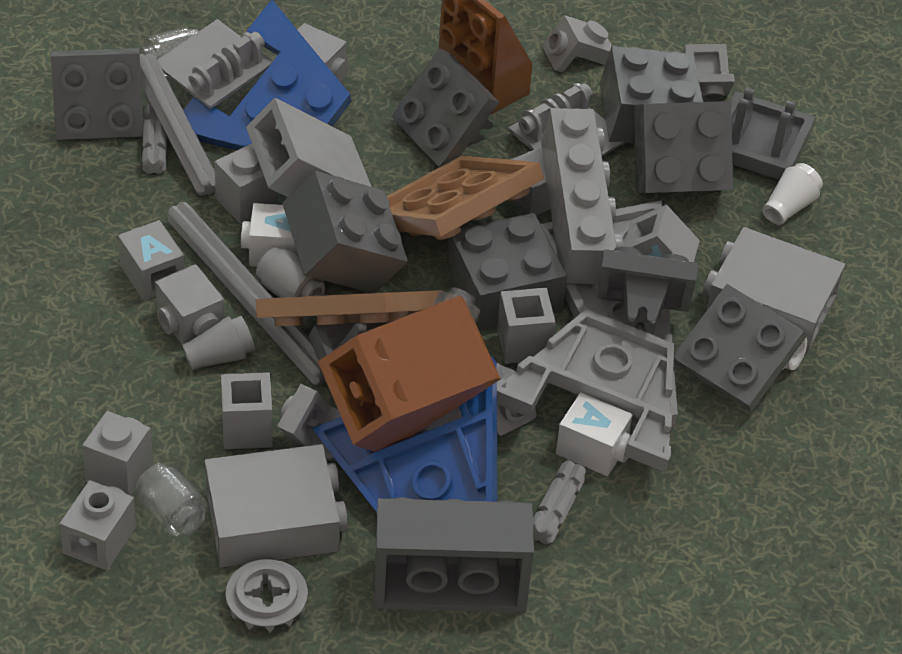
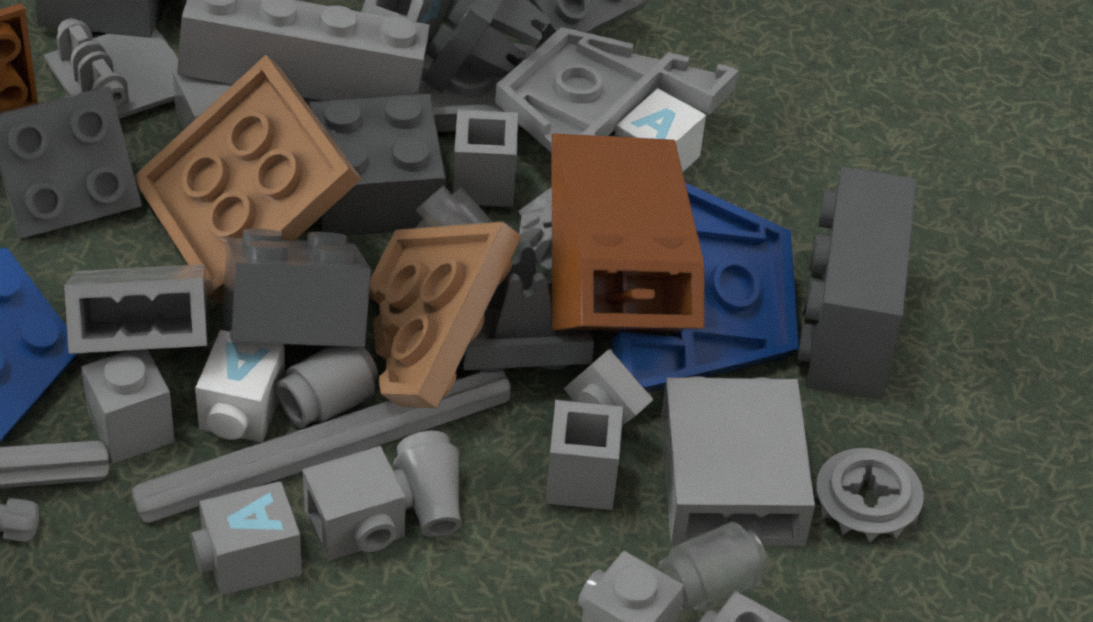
camera: 80 degrees left, 0 degrees up
(557, 501) = (746, 195): light grey axle -> none

